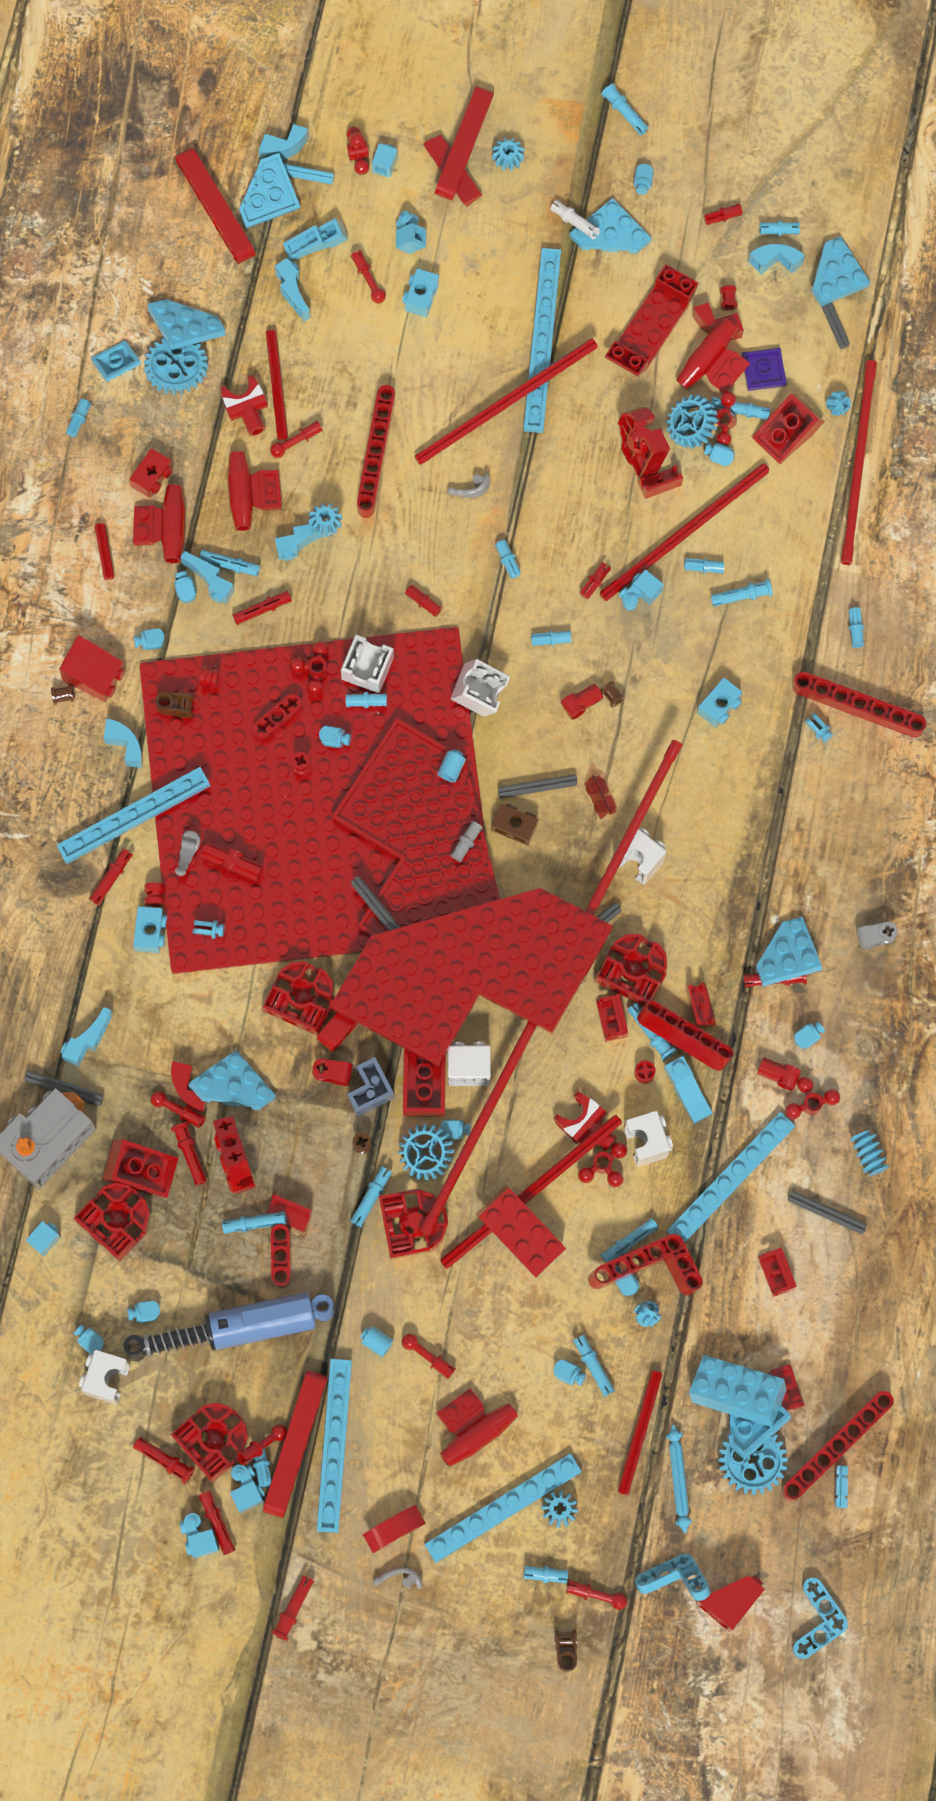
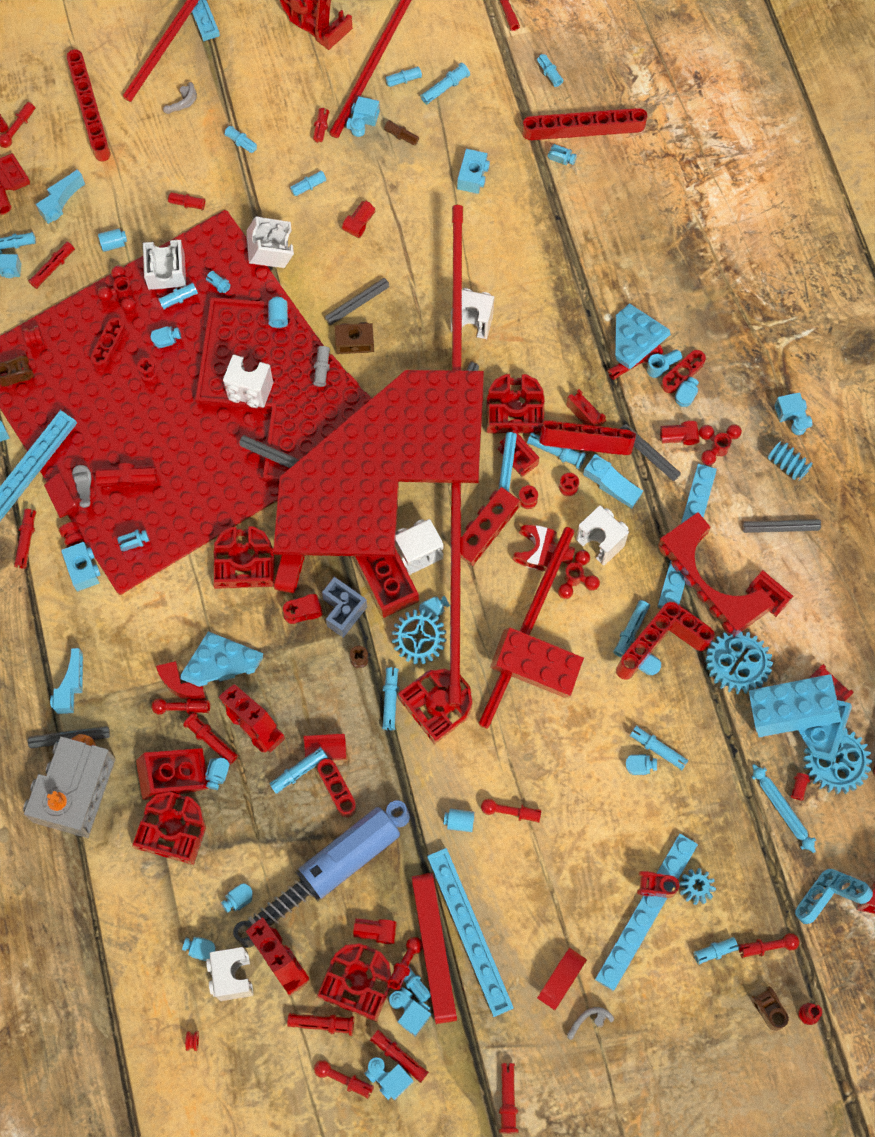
camera: 25 degrees left, 5 degrees down
(43, 1237) = (113, 877): medium azure brick -> none
(44, 1418) = (192, 1041): none -> red bush
(146, 1500) = (323, 1069): none -> red pin
(152, 1383) = (278, 956): none -> red connector
(162, 851) = (60, 496): none -> red slope
(180, 1187) = (216, 772): none -> medium azure arm
(255, 1404) = (381, 931): none -> red piece
(328, 526) = (71, 169): medium azure gear -> none
(332, 609) = (112, 239): none -> medium azure brick
(386, 833) = (248, 386): none -> white piece
(413, 707) = (221, 284): none -> medium azure pin
(472, 1426) = (583, 852): red plate -> none
(521, 1488) = (655, 884): none -> red piece
(574, 1068) = (500, 498): none -> red brick
(591, 1030) = (507, 462): none -> medium azure axle
(596, 789) = (410, 284): clear red hinge -> none
(599, 1069) = (528, 502): none -> red wheel
(599, 1672) = (810, 1013): none -> red pin
(612, 694) = (381, 203): reddish brown bush -> none
(639, 1433) = (729, 786): red axle -> none
(647, 1313) = (680, 680): medium azure gear -> none
(671, 626) = (401, 133): none -> reddish brown axle
(702, 1306) = (755, 671): none -> medium azure gear
(704, 1466) = (800, 786): none -> red pin
(731, 1274) = (733, 611): none -> red arch
(741, 1081) = (655, 457): none -> dark grey axle
(803, 993) = (663, 362): none -> medium azure axle
(833, 1012) = (685, 363): none -> red beam
(872, 935) = (697, 289): light grey piece -> none
(902, 1101) = (793, 408): none -> medium azure brick

